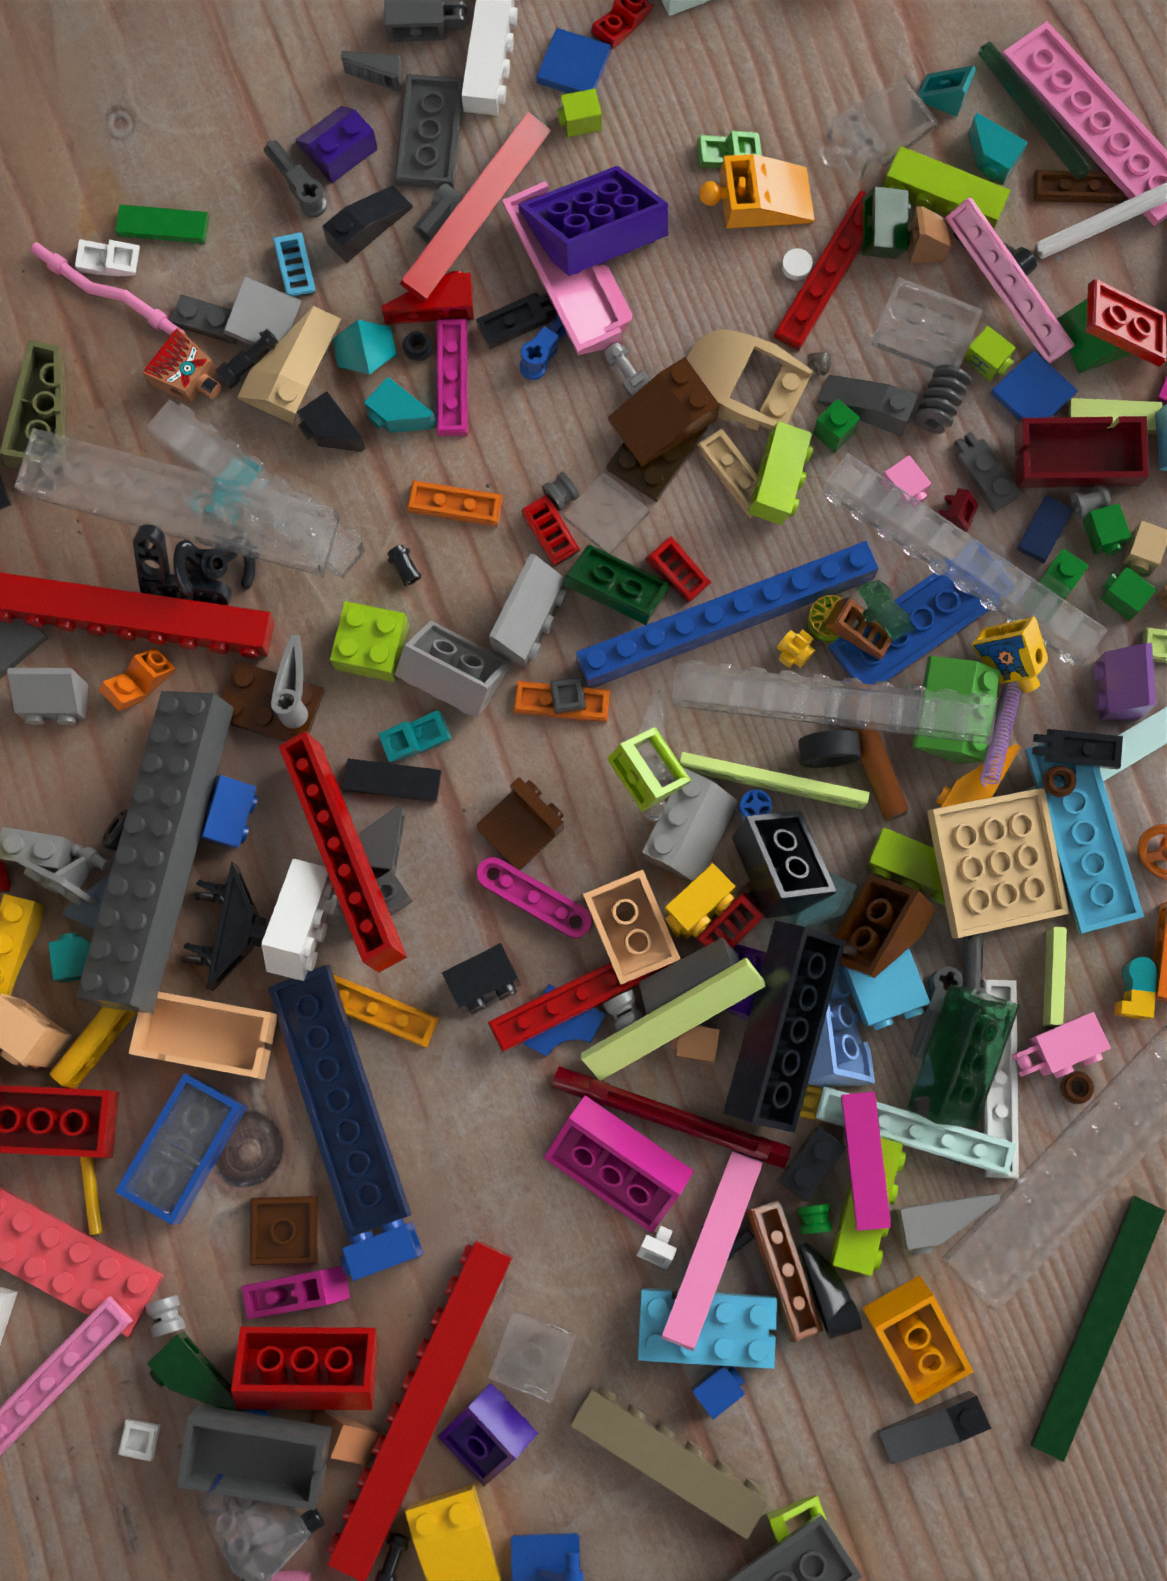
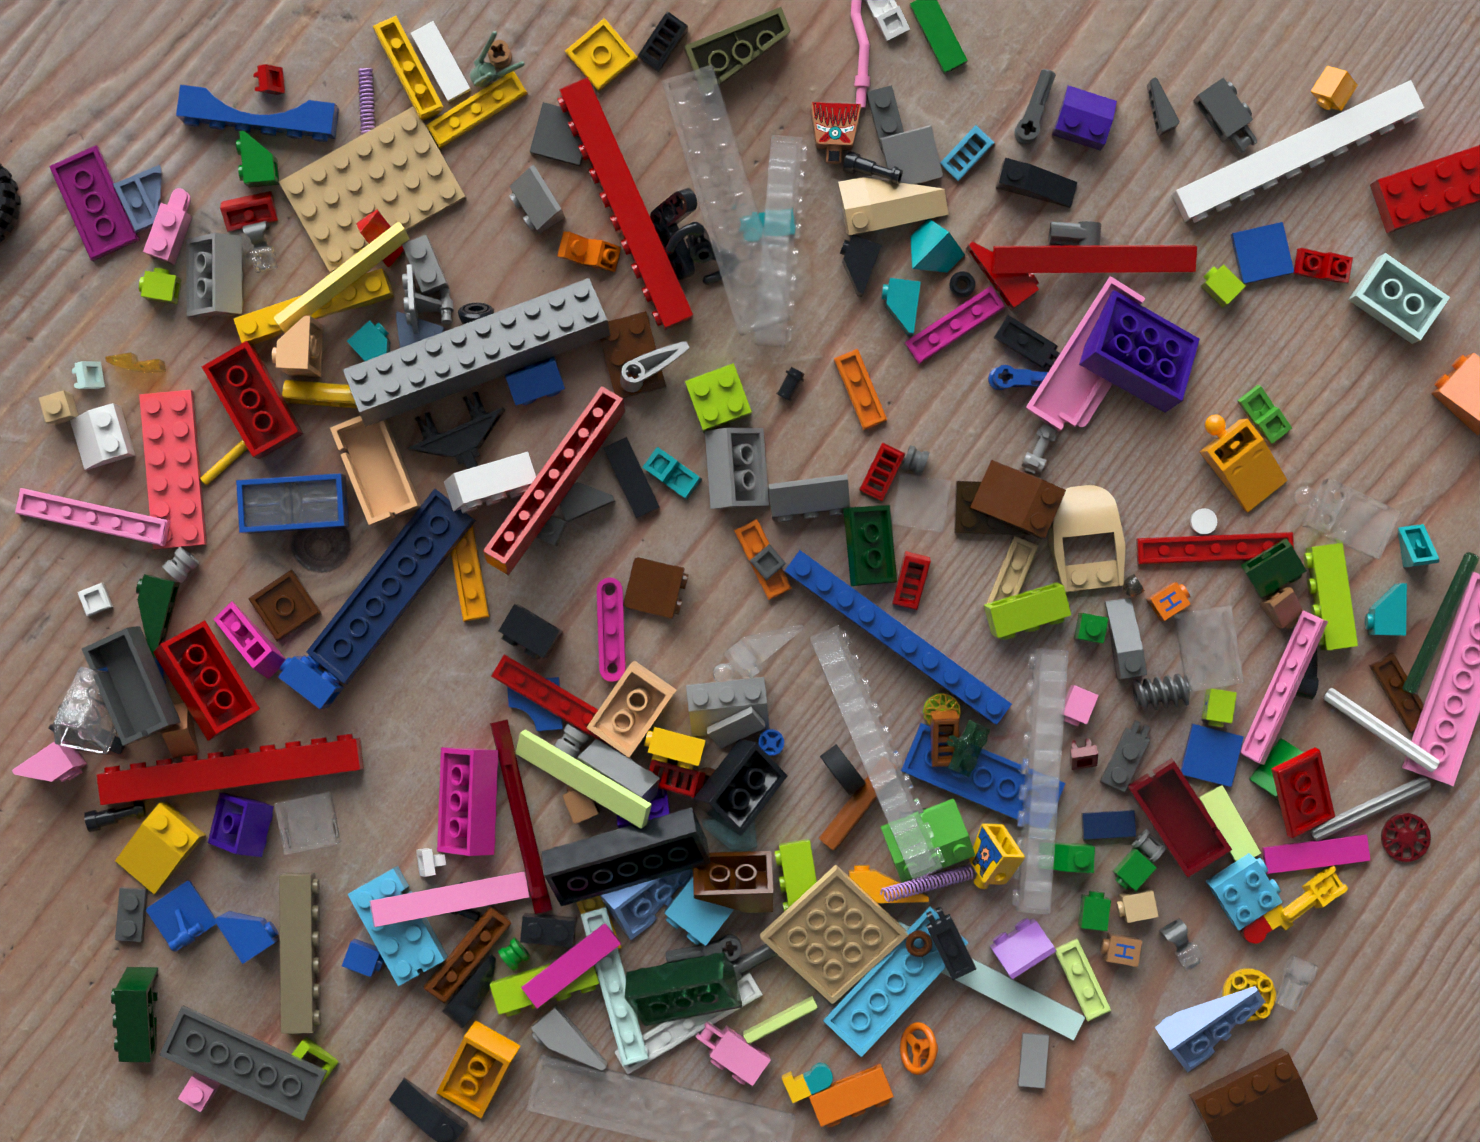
camera: 55 degrees right, 10 degrees up
(429, 131) = (1138, 181): dark grey tile -> none
(612, 1505) = (246, 933): none -> blue slope
(637, 775) = (731, 650): lime tile -> none
(717, 831) = (736, 727): none -> light grey tile
(775, 781) = (797, 743): yellowish green tile -> none
(795, 648) = (903, 701): yellow gear -> none
(856, 339) = (1169, 601): none -> orange brick
(1086, 1087) = (714, 1086): reddish brown plate -> none

